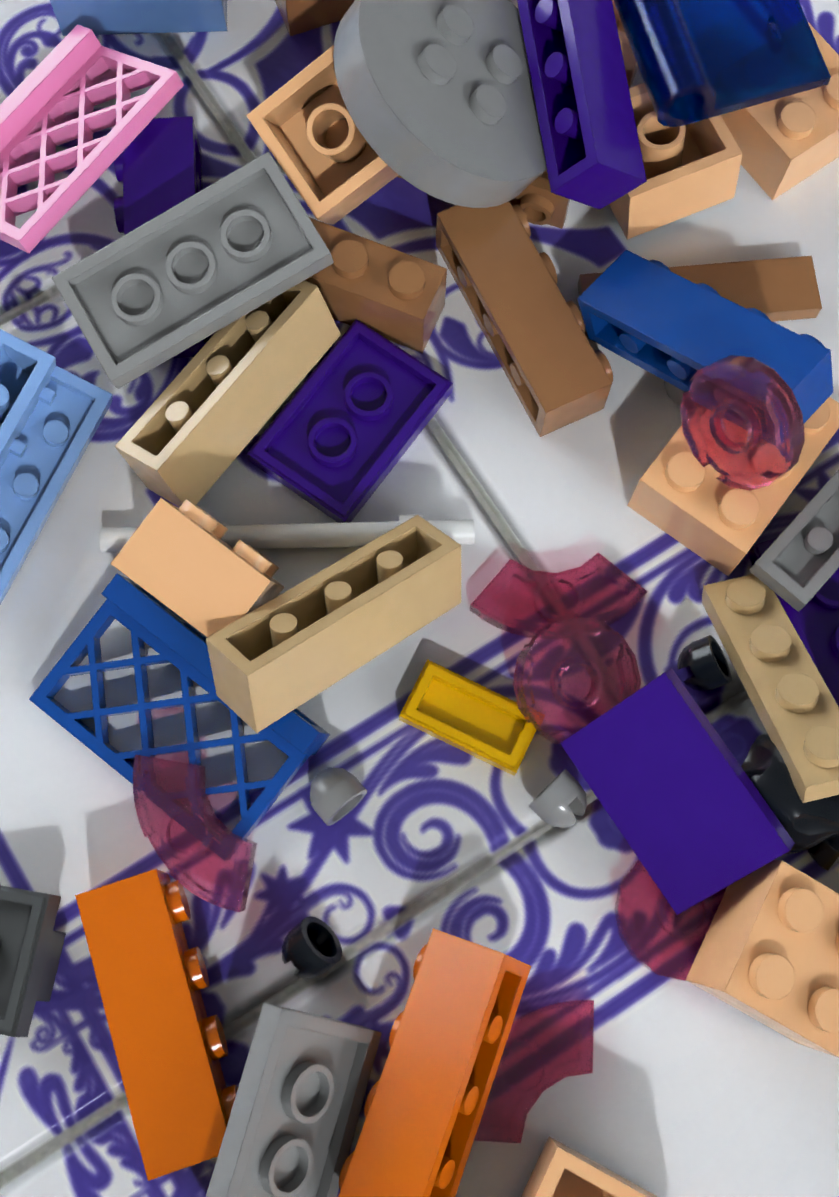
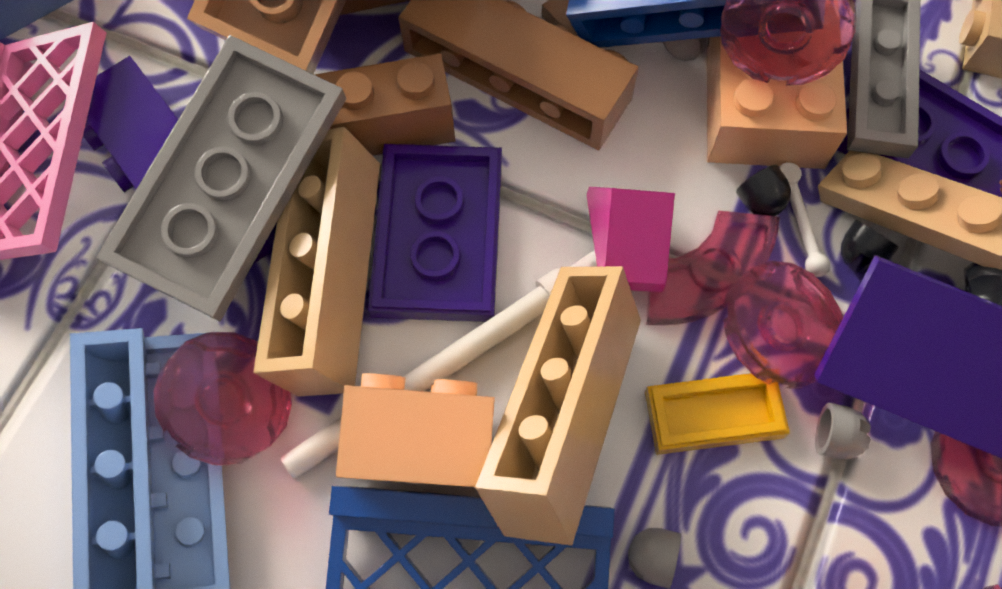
camera: 30 degrees left, 5 degrees down
(74, 453) = (217, 402): none -> clear pink tile
(501, 525) = (633, 232): none -> dark pink slope
(651, 562) = (765, 192): none -> black hinge
(686, 563) = (816, 262): none -> white hinge

